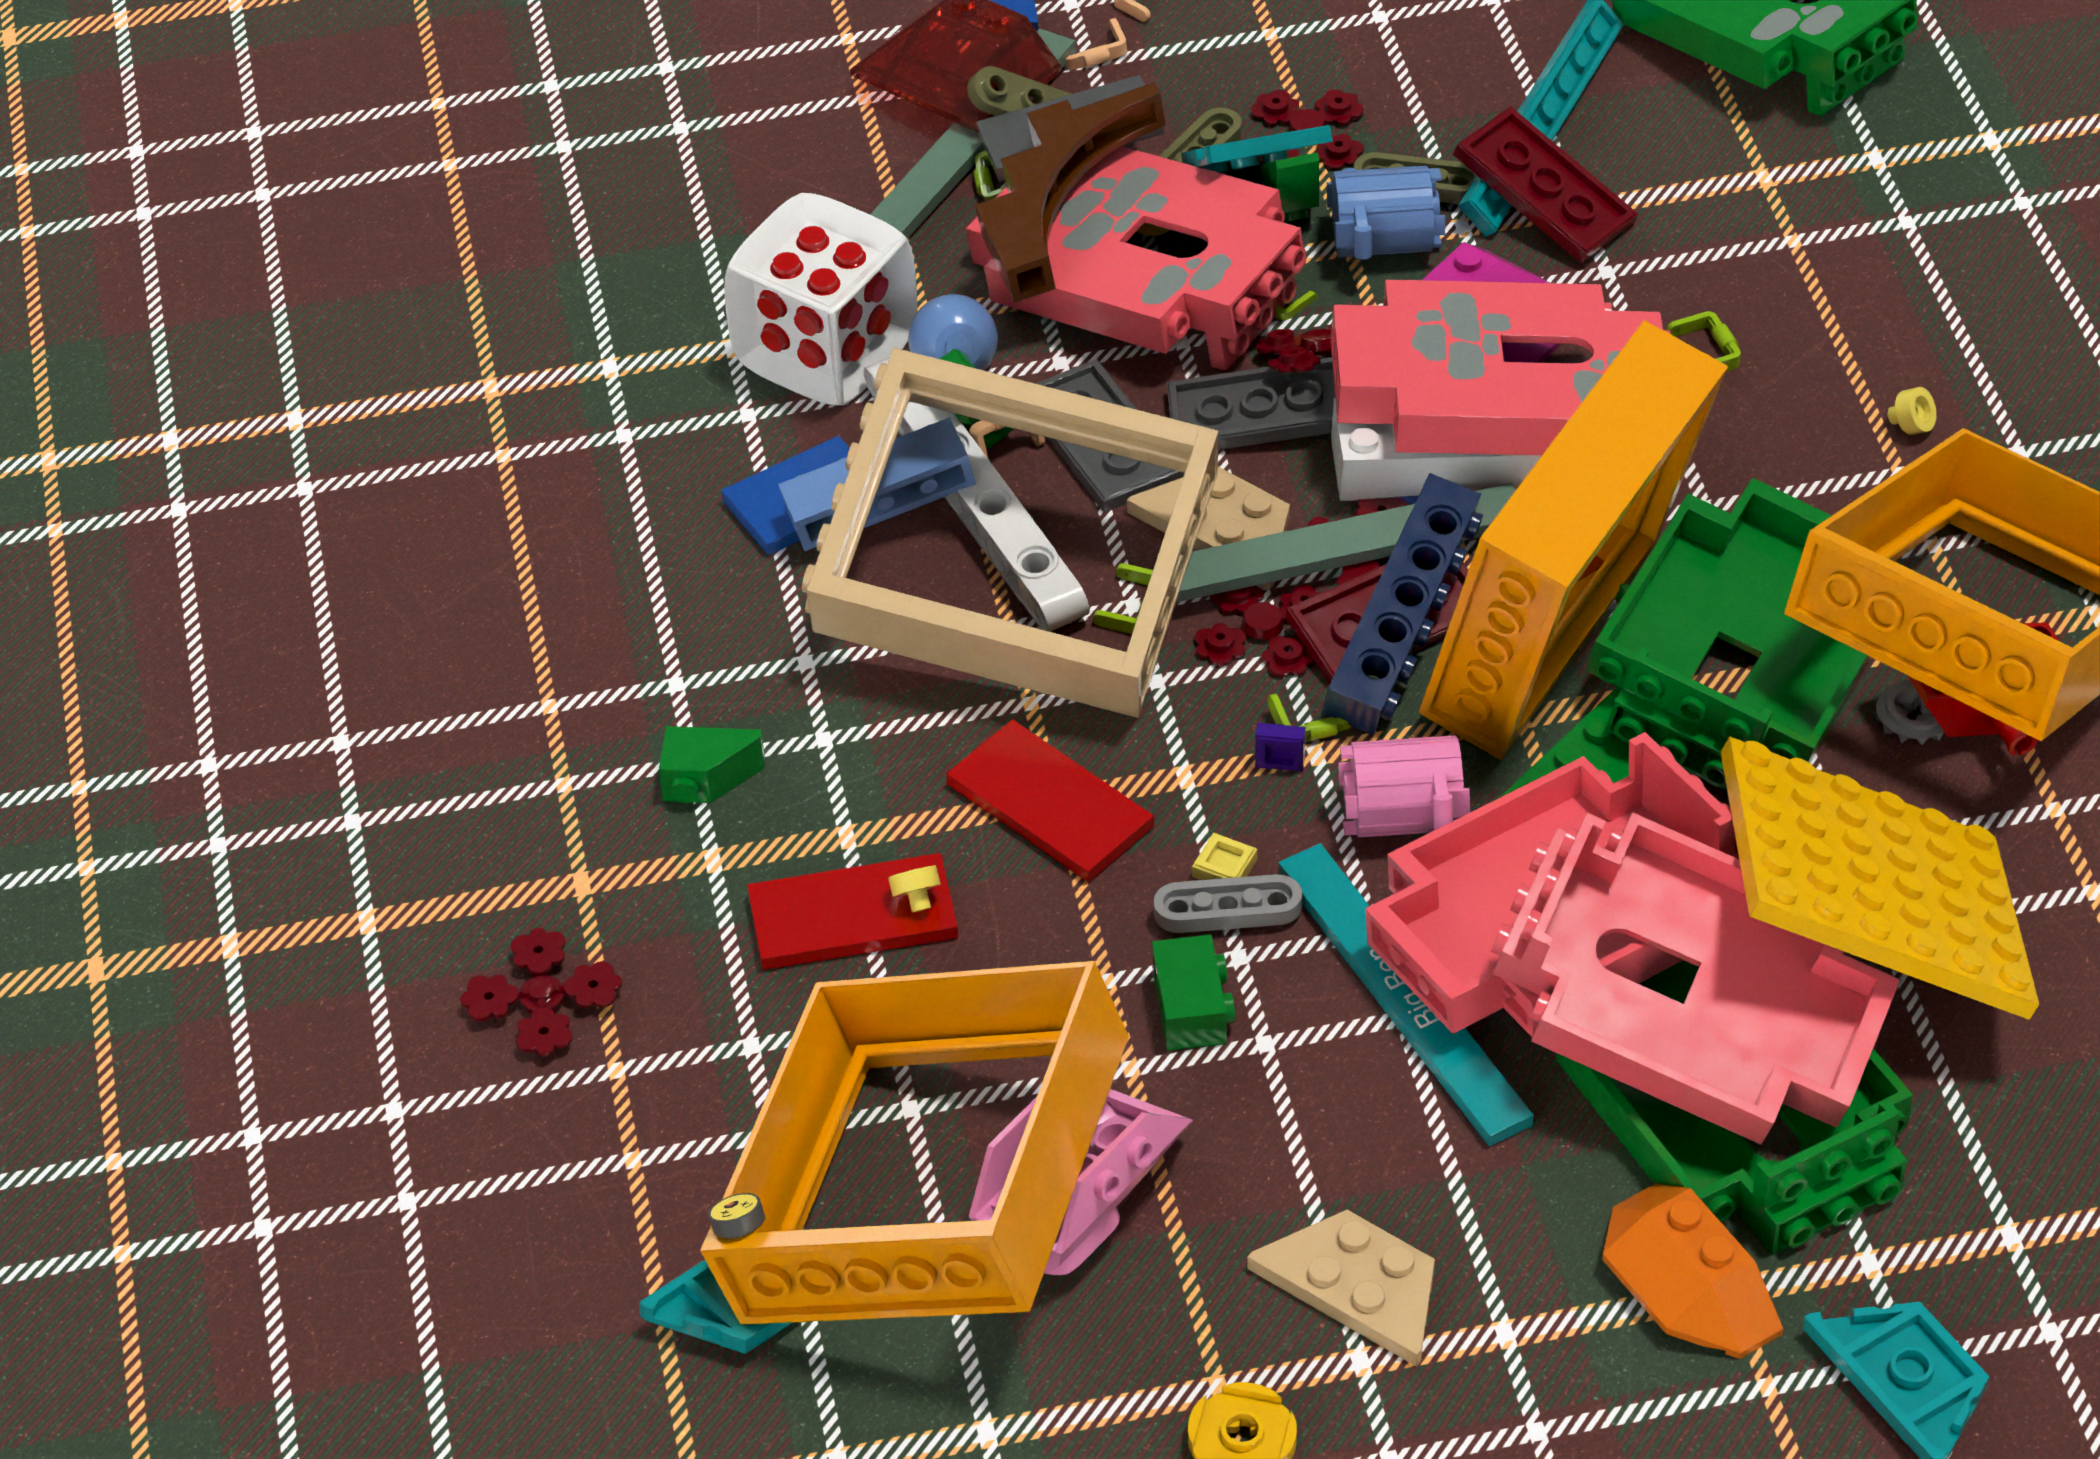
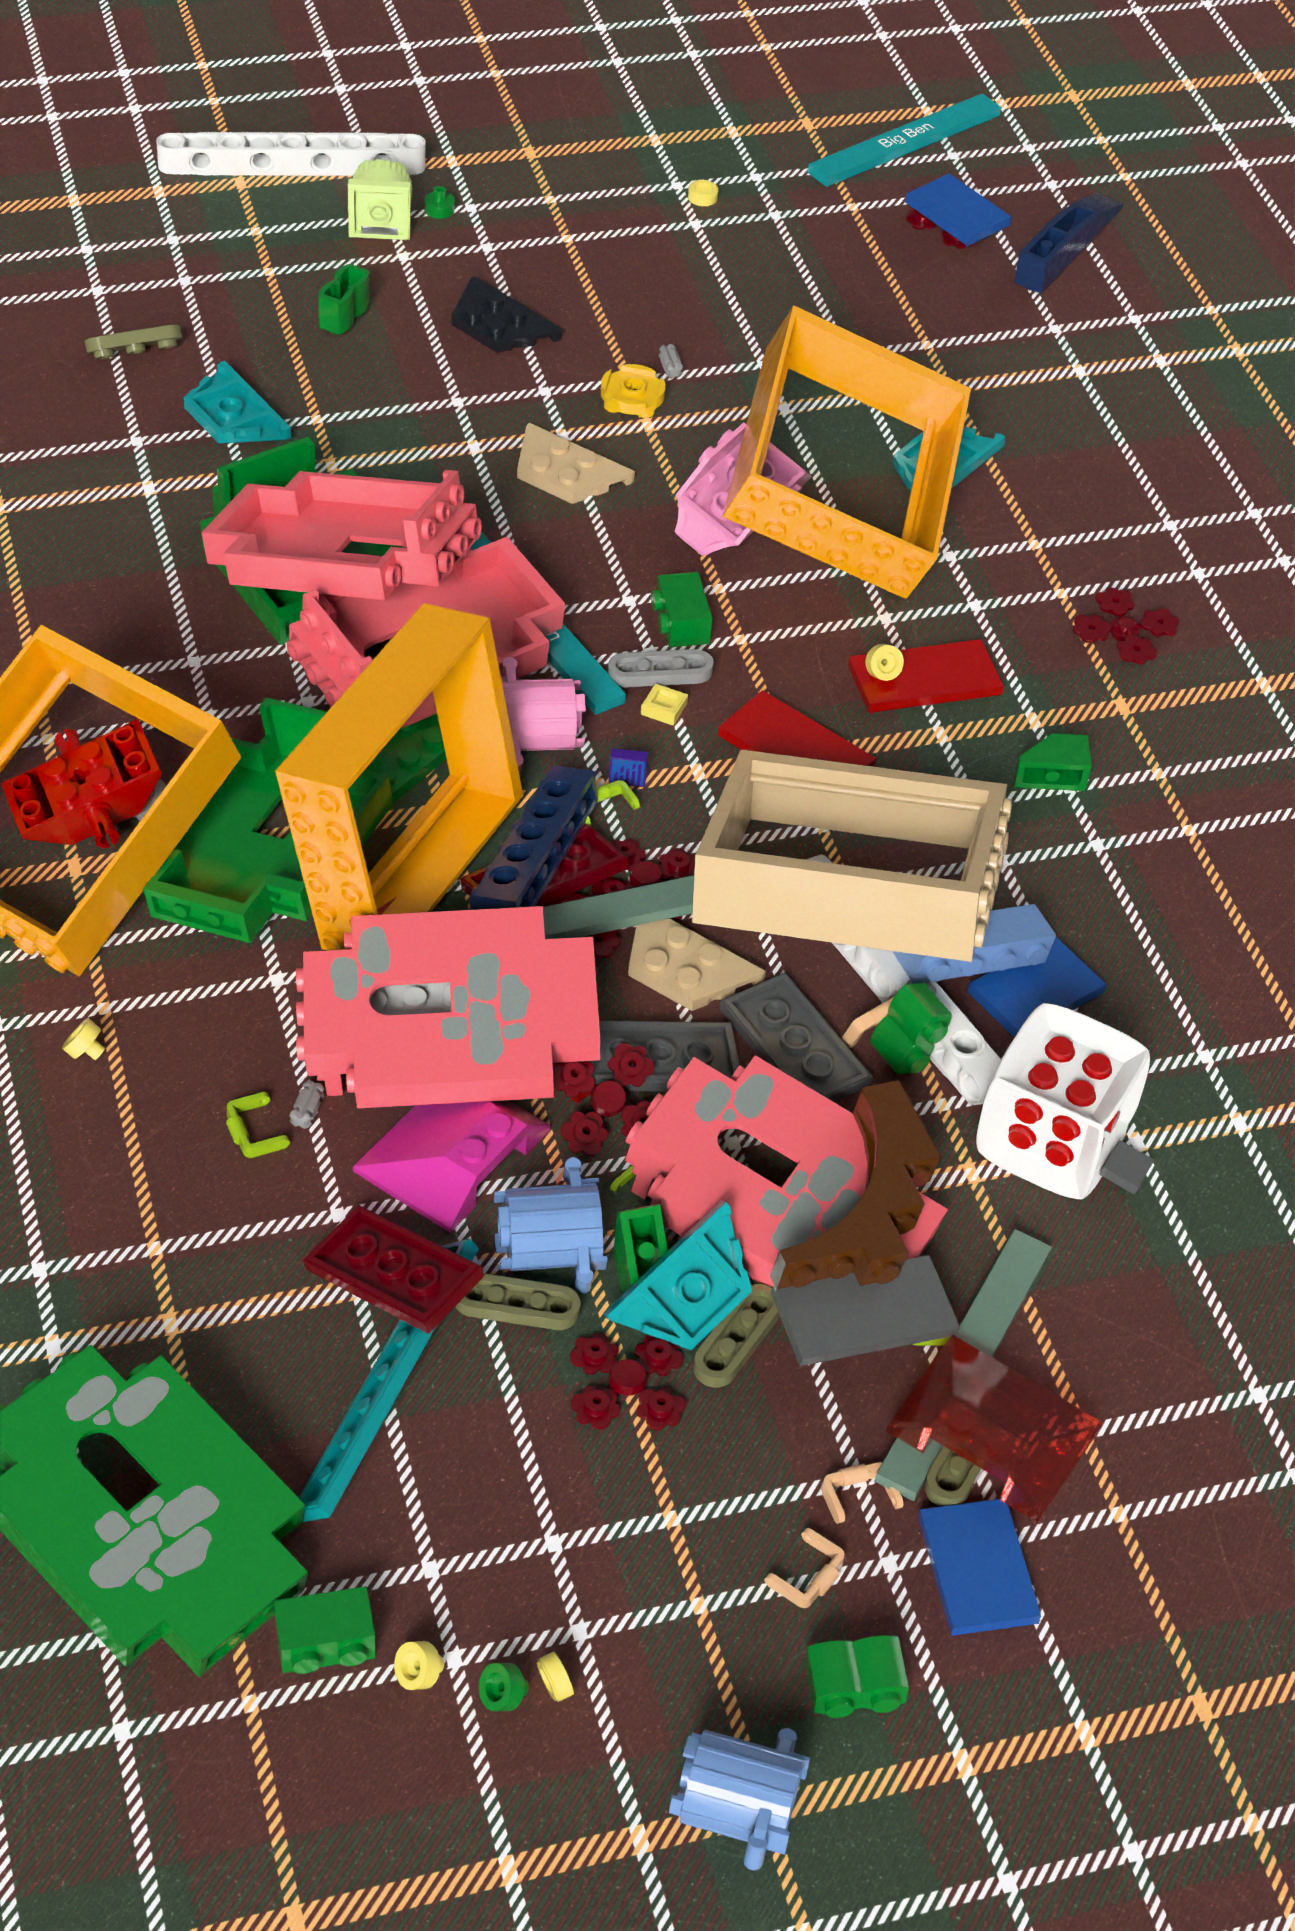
camera: 170 degrees right, 0 degrees up
(736, 1215) = (953, 391): tile -> none
(957, 324) = (941, 1093): medium blue brick -> none
(1011, 92) = (912, 1363): olive plate -> none
(1690, 1271) = (362, 448): orange wedge -> none
(1876, 877) = (210, 589): yellow plate -> none

